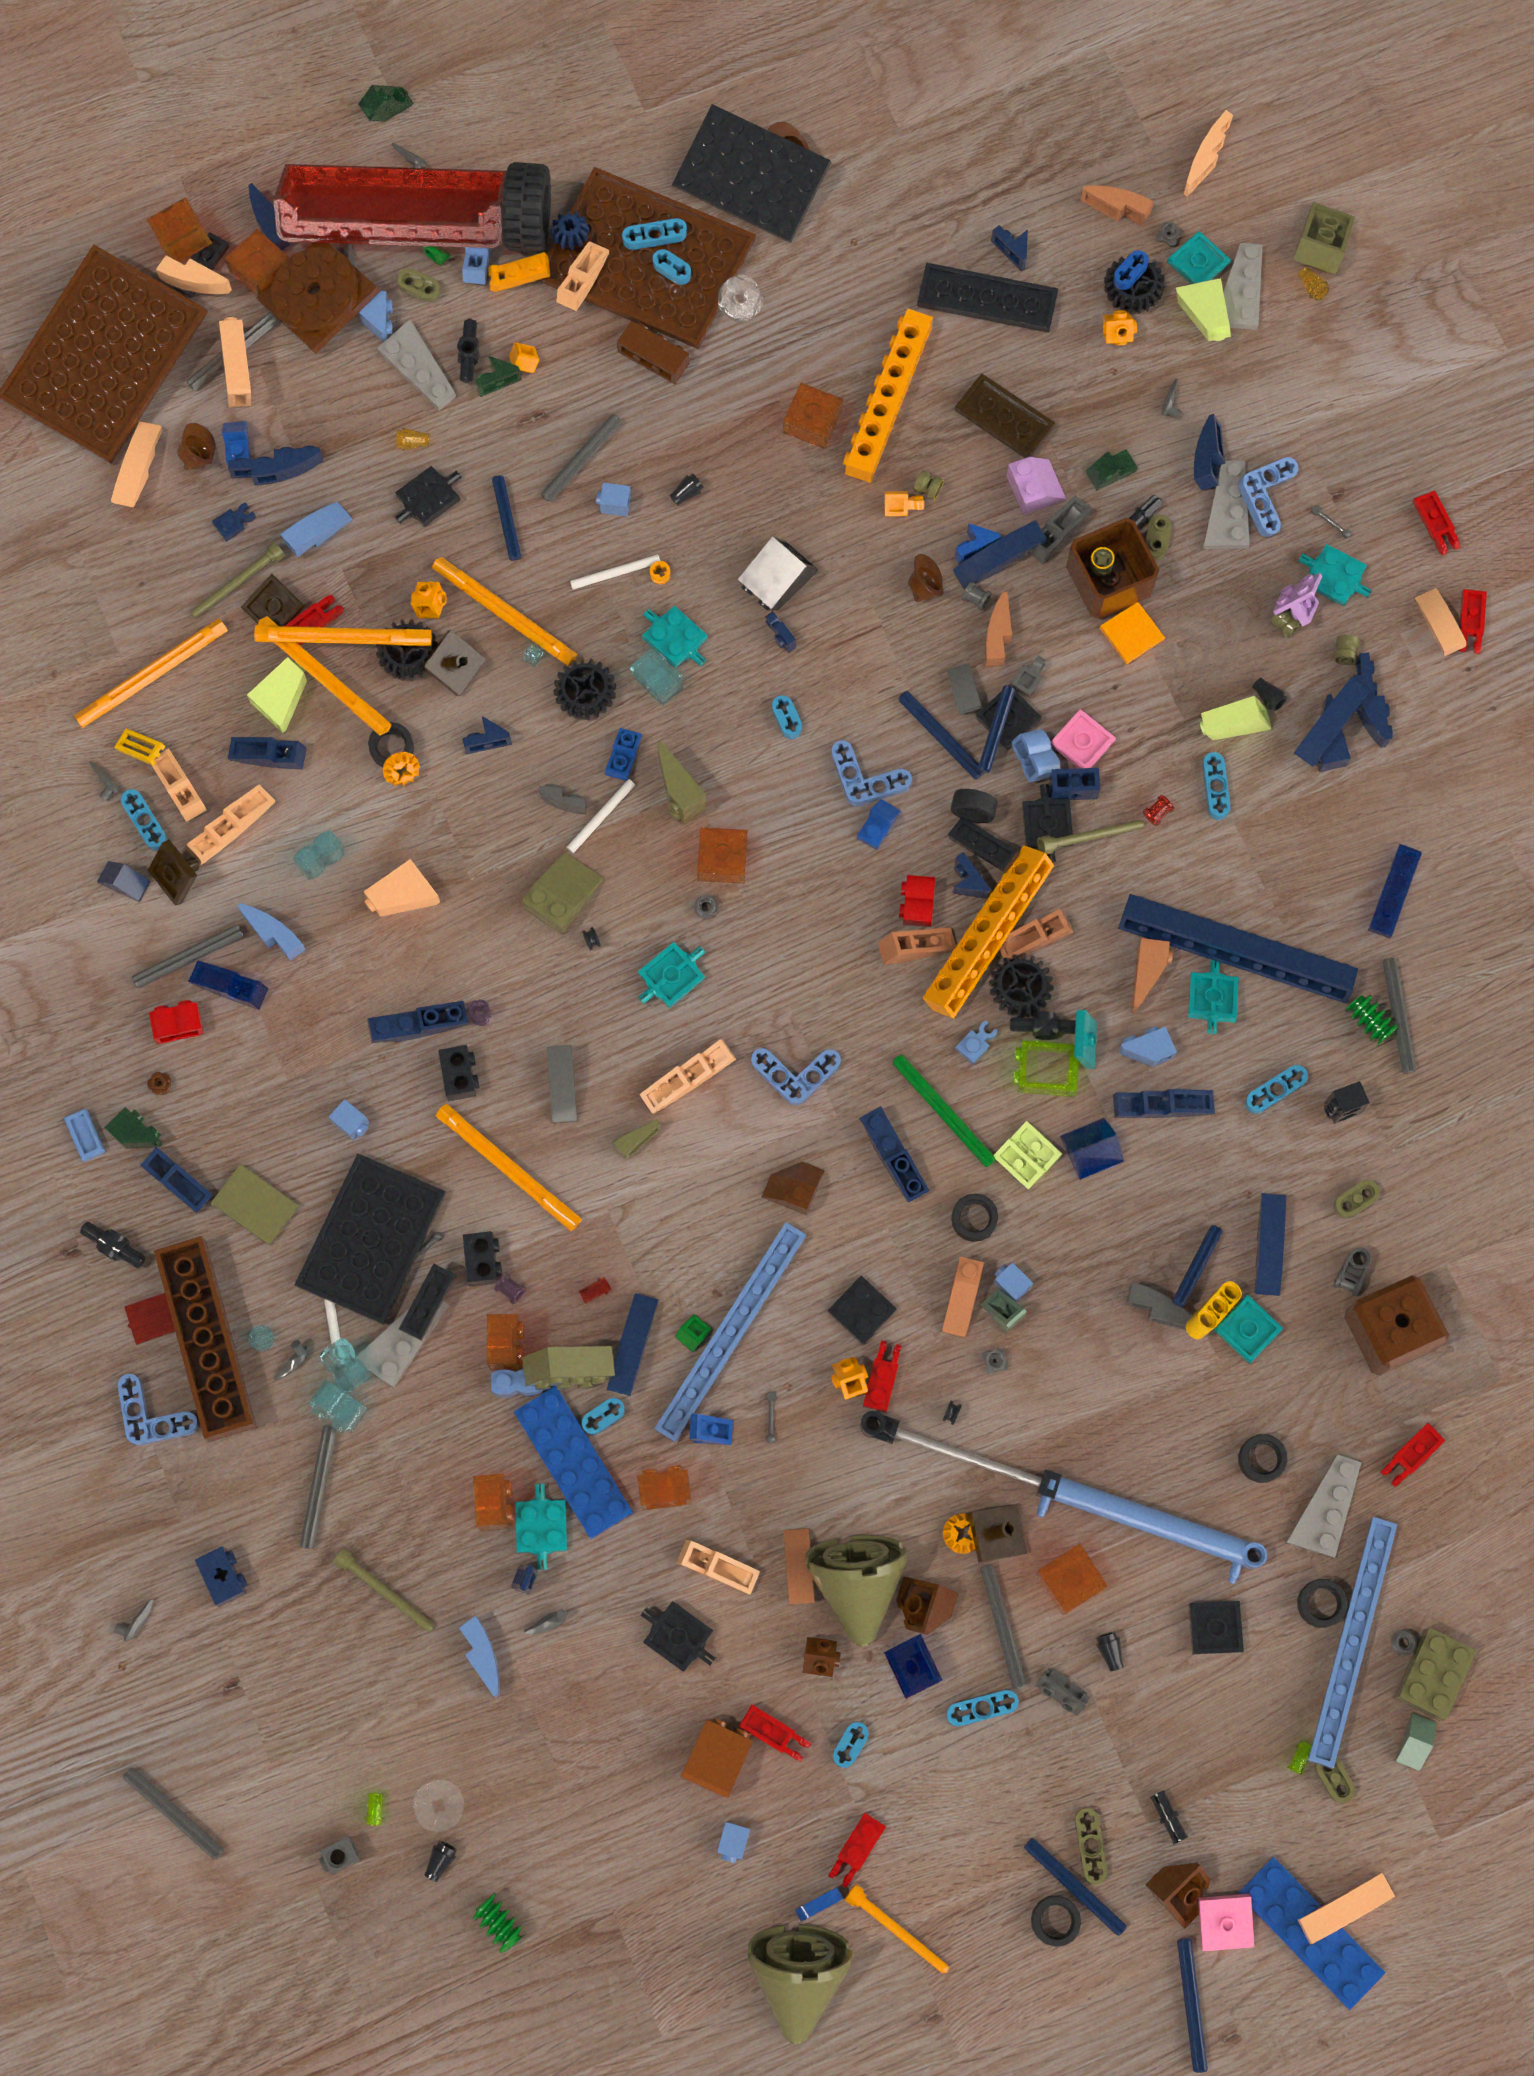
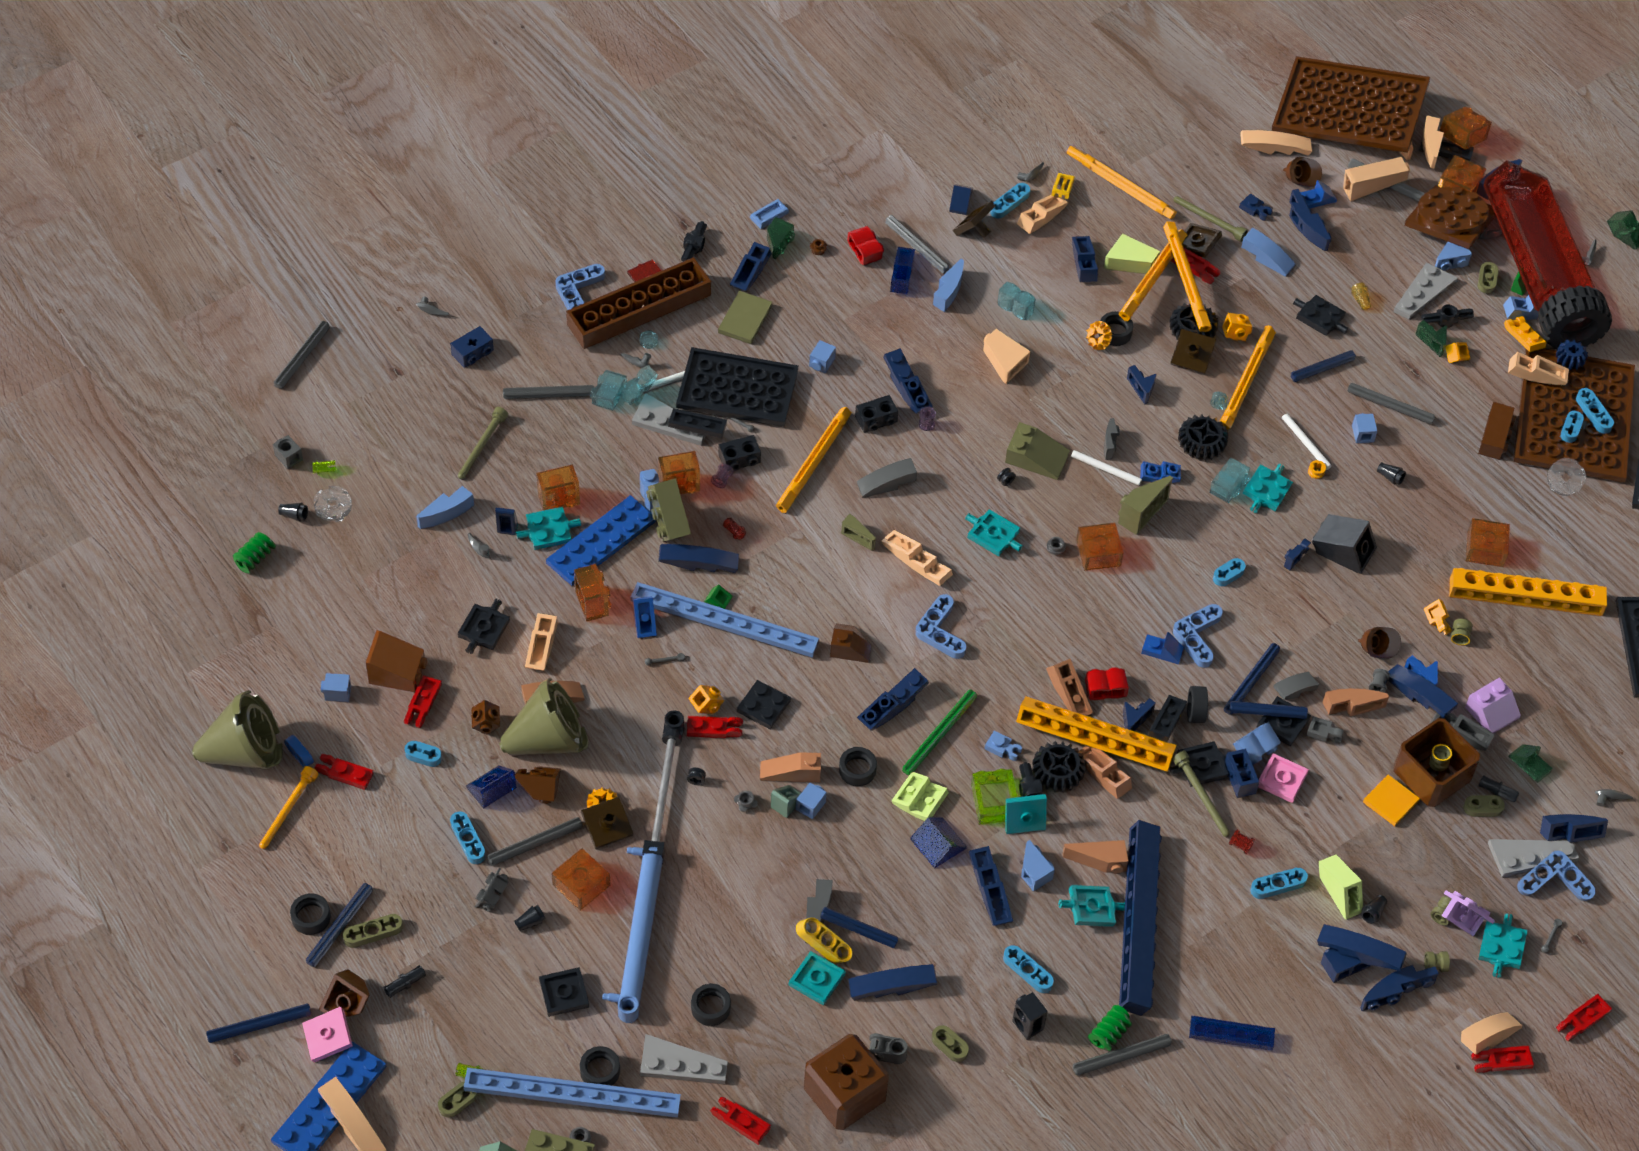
camera: 75 degrees right, 20 degrees down
(230, 824) = (1026, 250): light nougat slope -> none
(607, 1421) = (637, 554): dark azure beam -> none
(1004, 416) = (1544, 676): dark brown plate -> none

